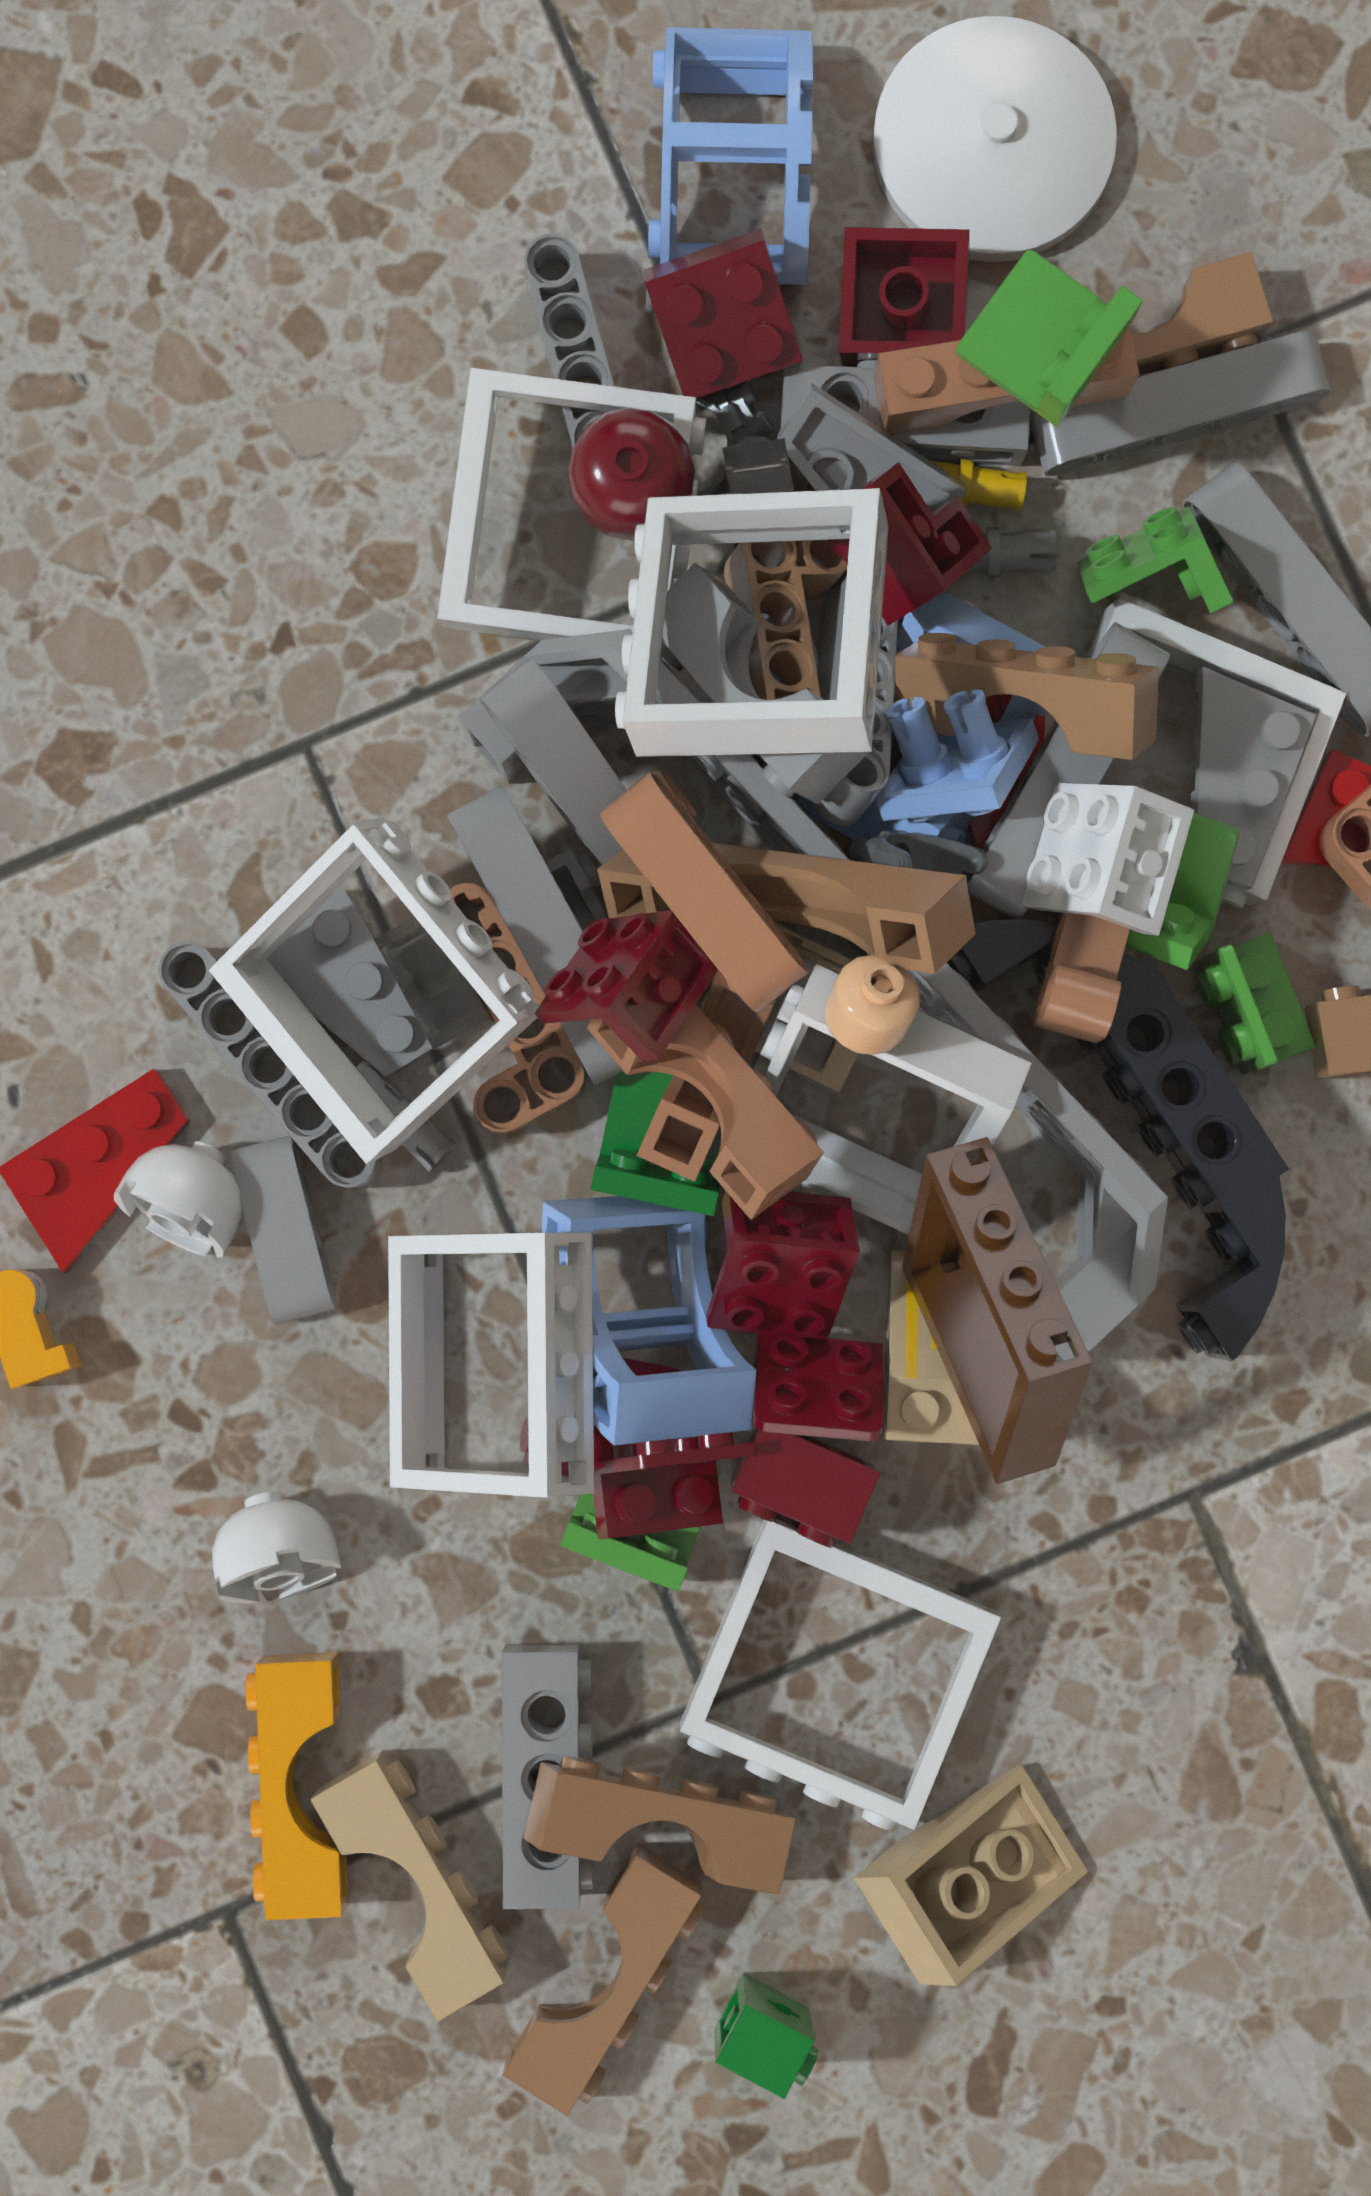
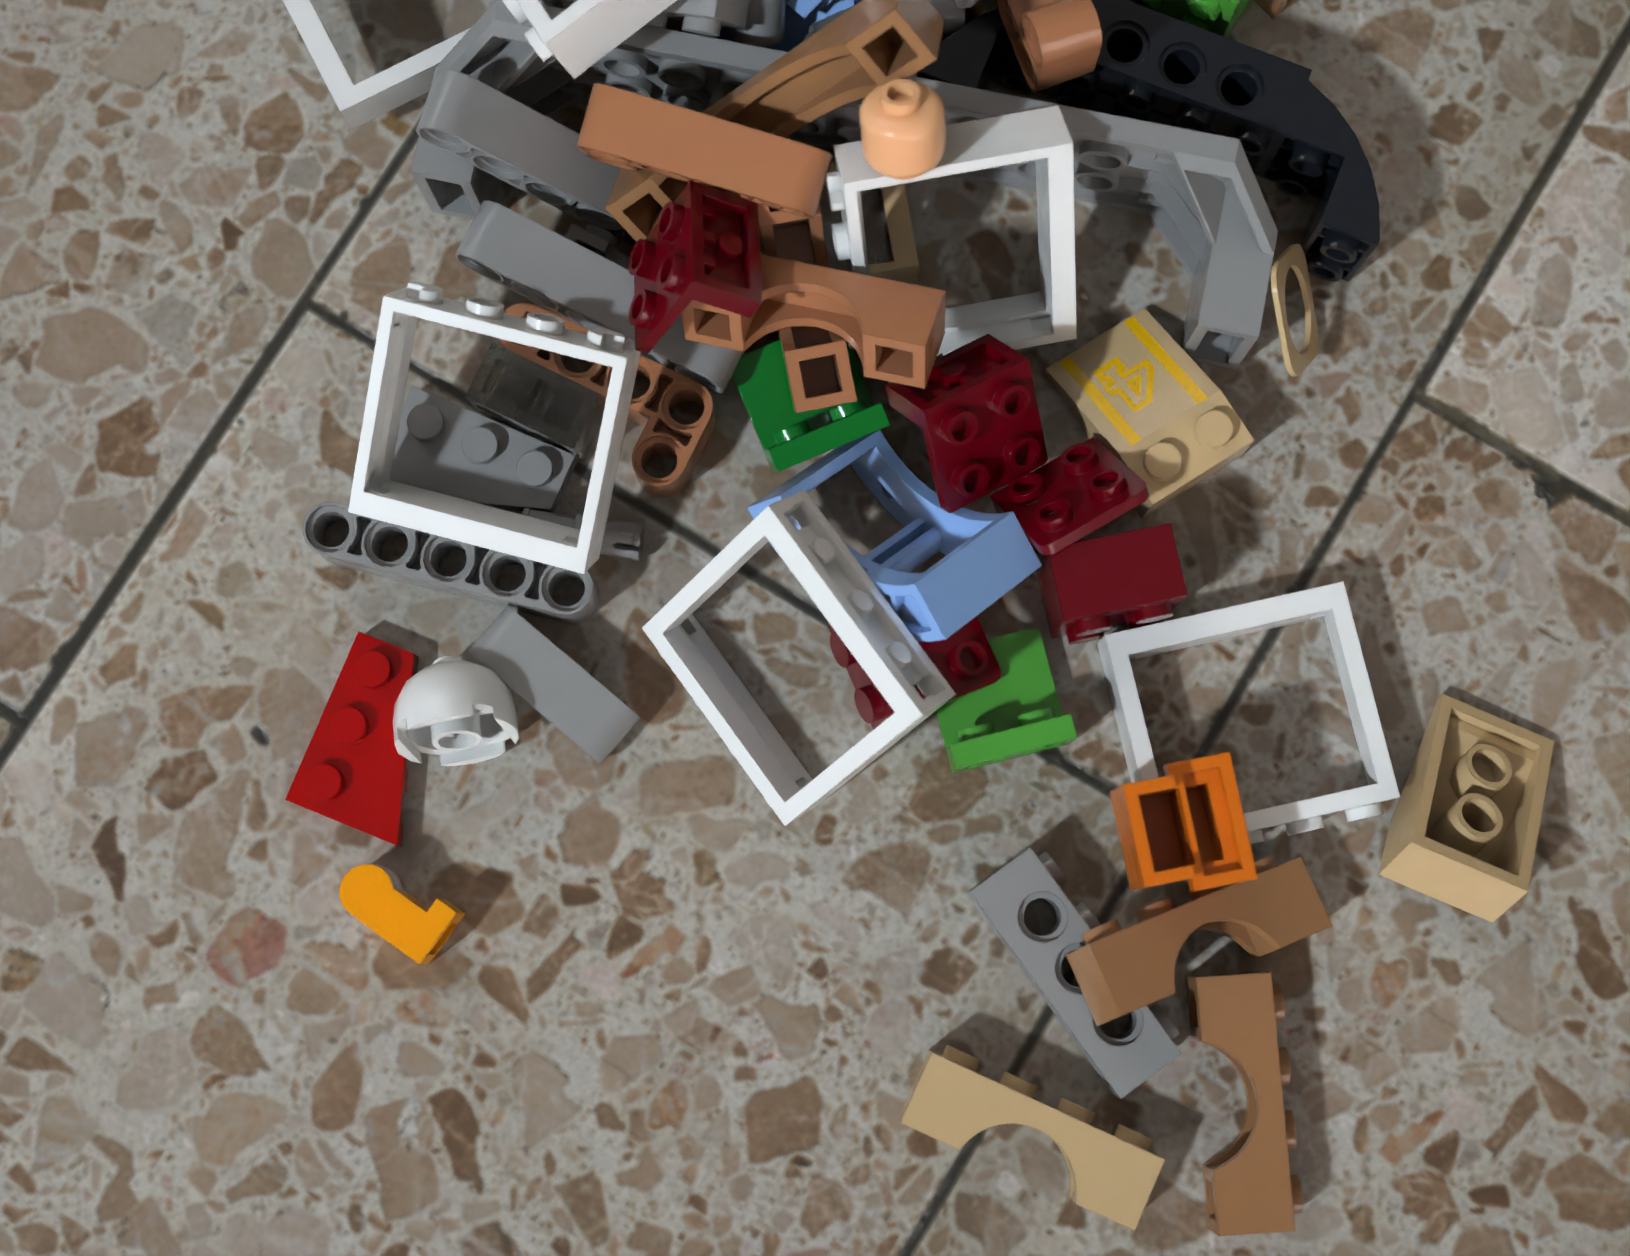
camera: 35 degrees left, 5 degrees down
(273, 1548) = (726, 942): white cylinder -> none
(301, 1863) = (931, 1185): light orange arch -> none
(662, 1484) = (1003, 656): dark red bracket -> none
(708, 1733) = (1185, 826): none -> orange plate
(765, 2037) = (1406, 1049): green brick -> none
(994, 1313) = (1243, 414): reddish brown window -> none
(1096, 1400) = (1294, 360): none -> tan piece

